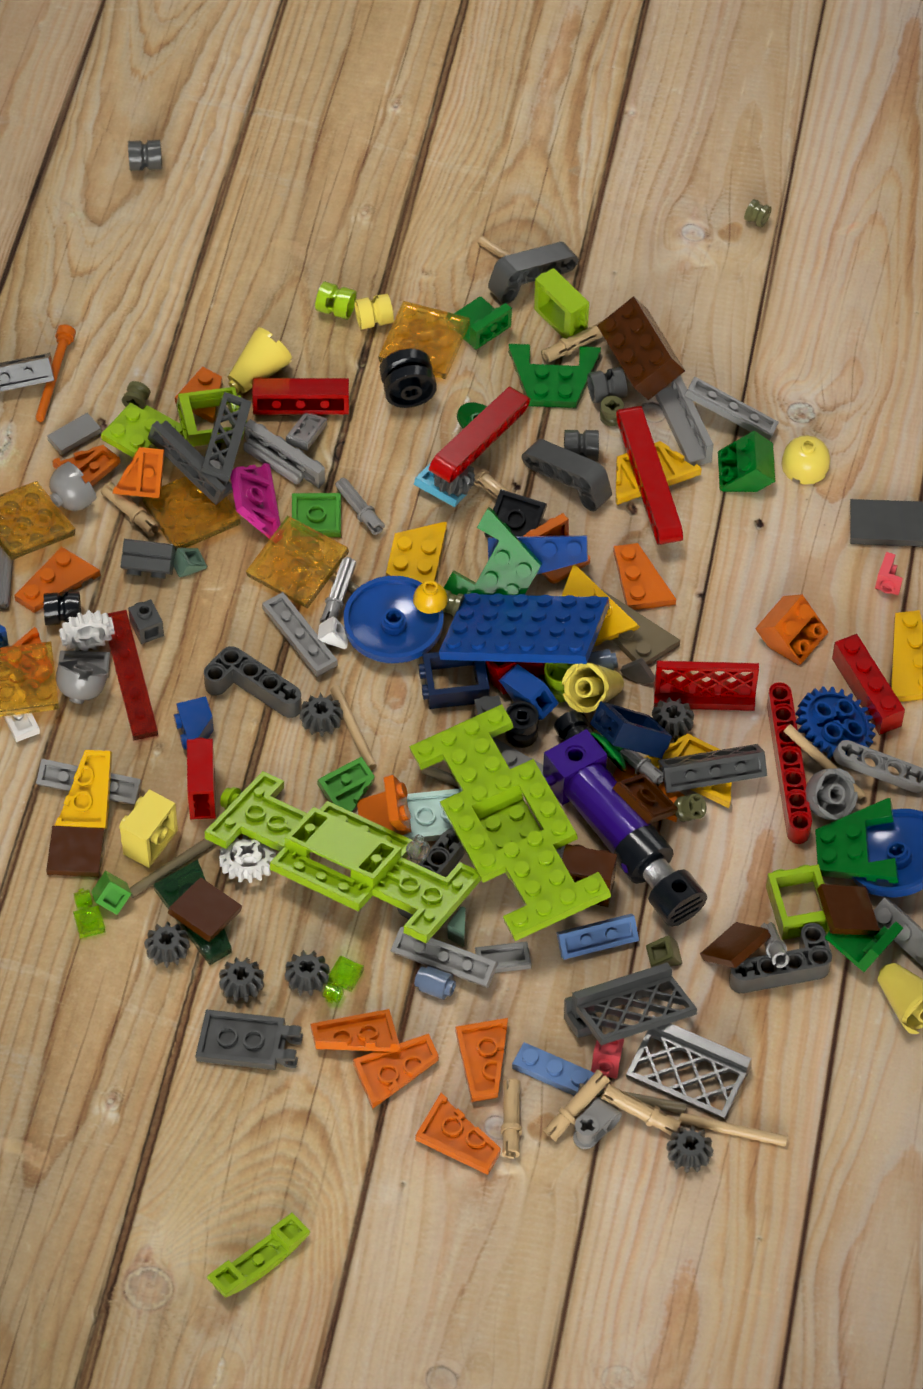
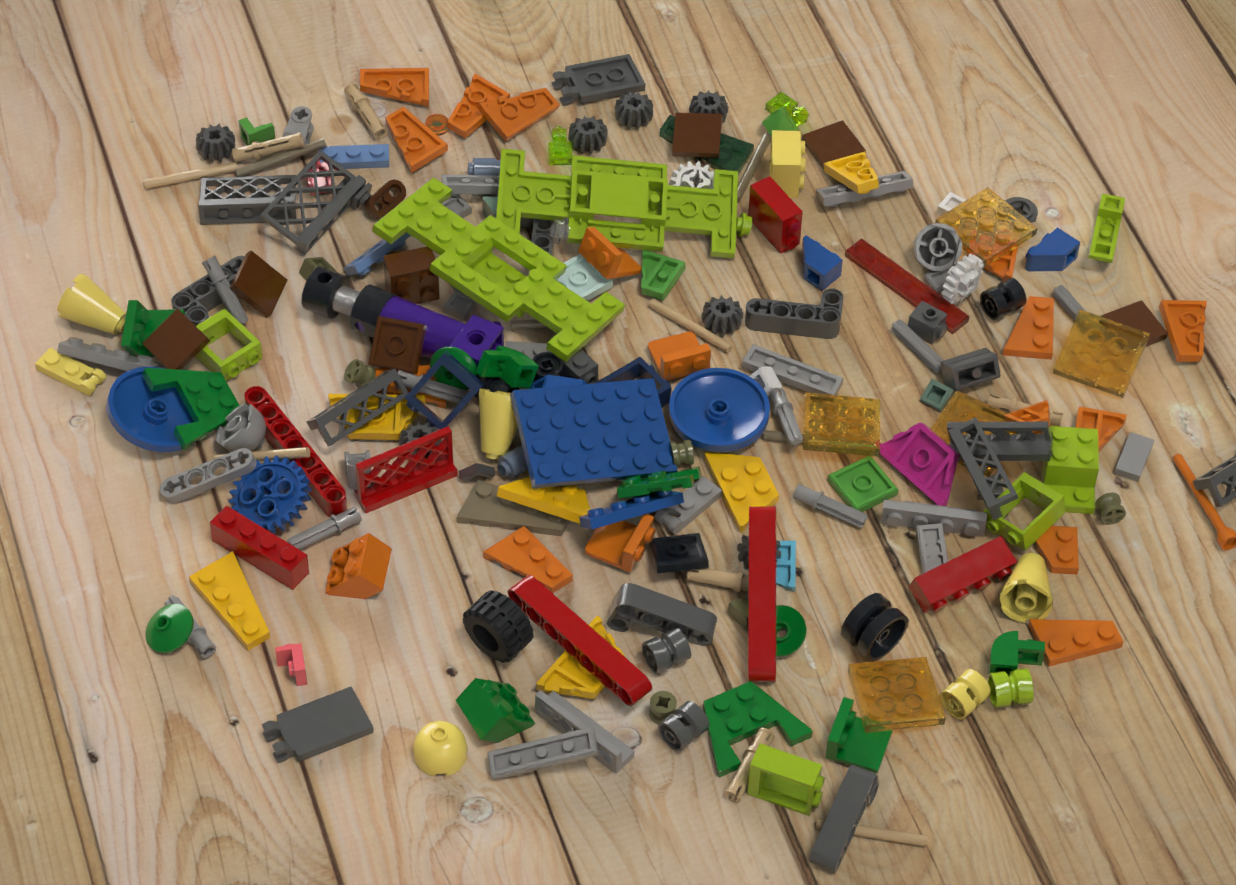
camera: 150 degrees right, 5 degrees down
(70, 489) = (1084, 388): light grey cylinder -> none
(168, 610) = (913, 341): none -> light grey axle
(246, 319) = (1074, 638): none -> orange wing
(313, 329) = (1009, 652): none -> green brick
(388, 693) = (679, 355): none -> orange bracket
(430, 597) = (697, 429): yellow brick -> none
(446, 1070) = (437, 124): none -> clear orange tile
(467, 564) = (696, 501): none -> light grey plate
(493, 456) = (739, 611): none -> olive slope
(553, 994) = (384, 200): none -> reddish brown plate
(556, 722) = (509, 365): none -> green brick
(576, 1105) = (321, 124): tan pin -> none
(639, 1143) = (250, 134): none -> bright green panel
(641, 348) = (671, 762): reddish brown brick -> none
(710, 509) = (498, 626): none -> black tyre
(741, 717) = (350, 461): none -> light grey piece
(801, 681) = (326, 528): none -> light grey axle

